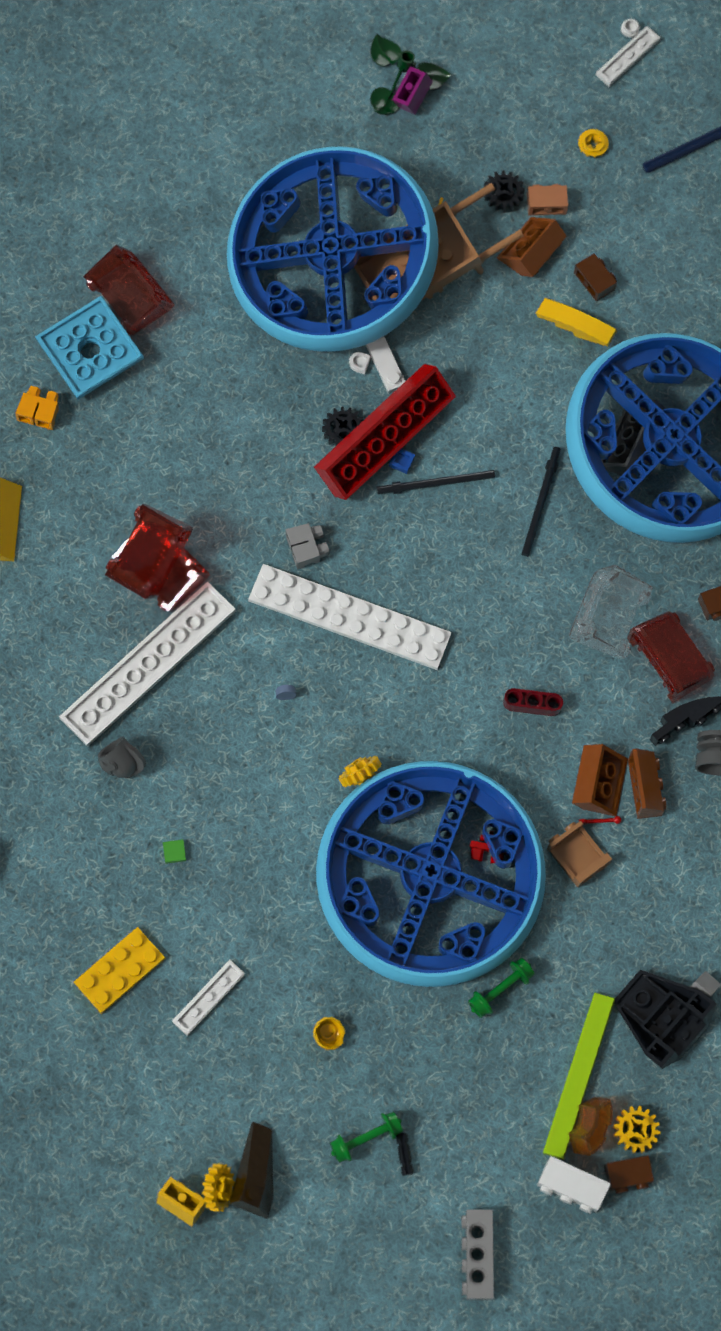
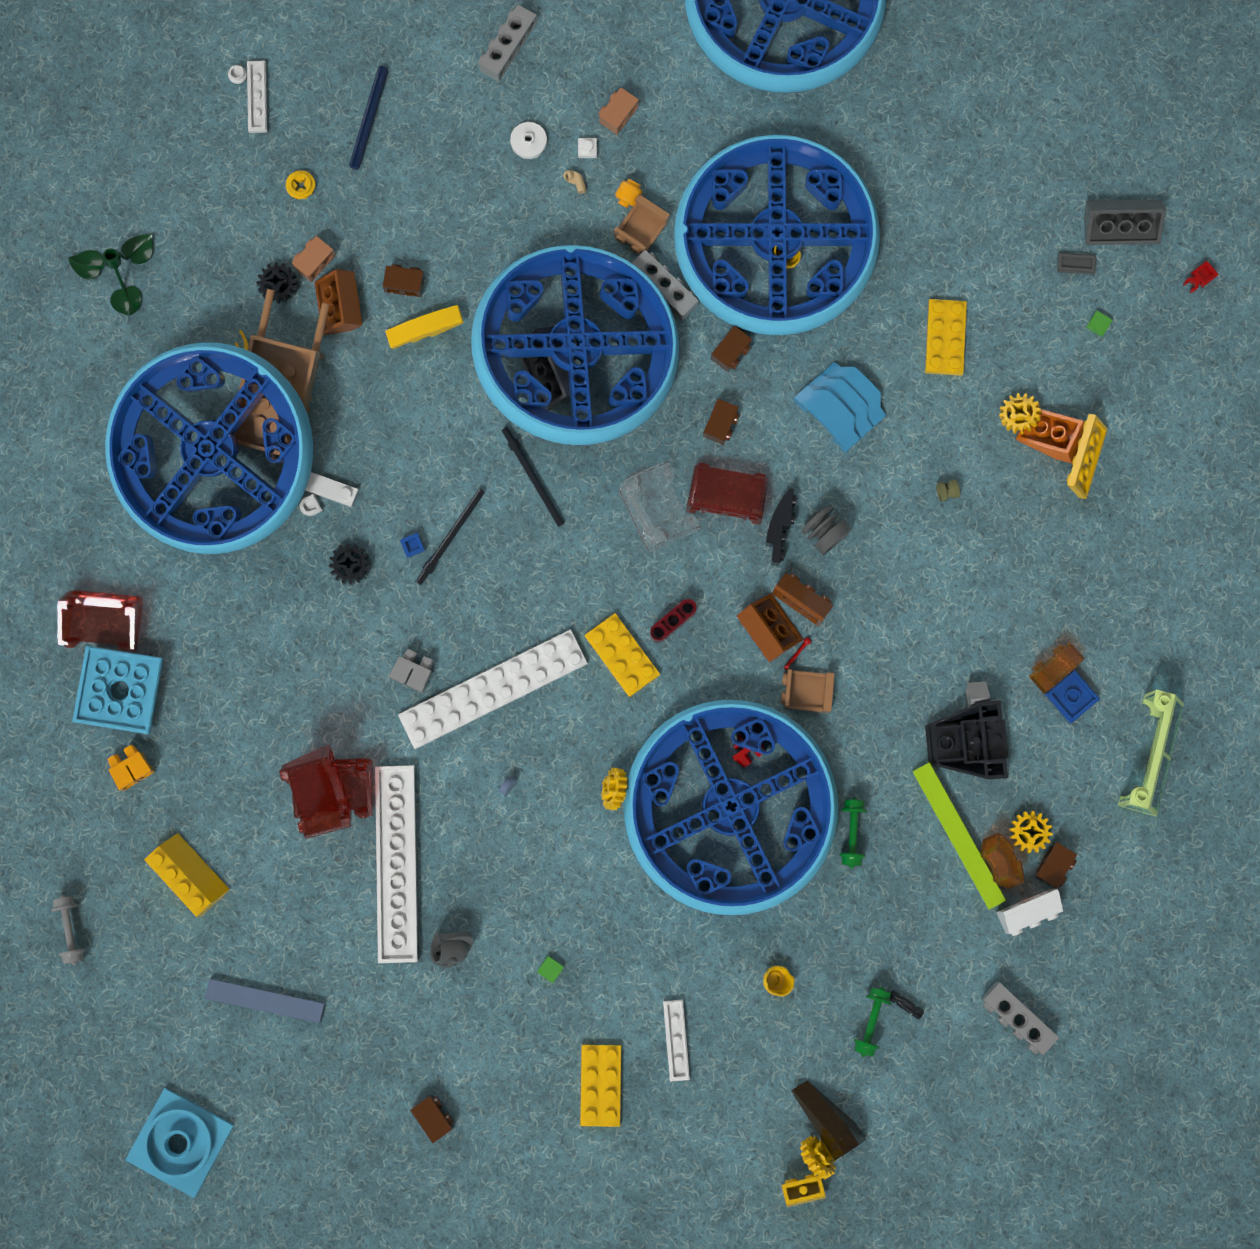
camera: 40 degrees left, 10 degrees up
(385, 431) = (381, 539): red brick -> none
(412, 90) = (138, 274): magenta brick -> none
(469, 689) = (622, 655): none -> yellow plate

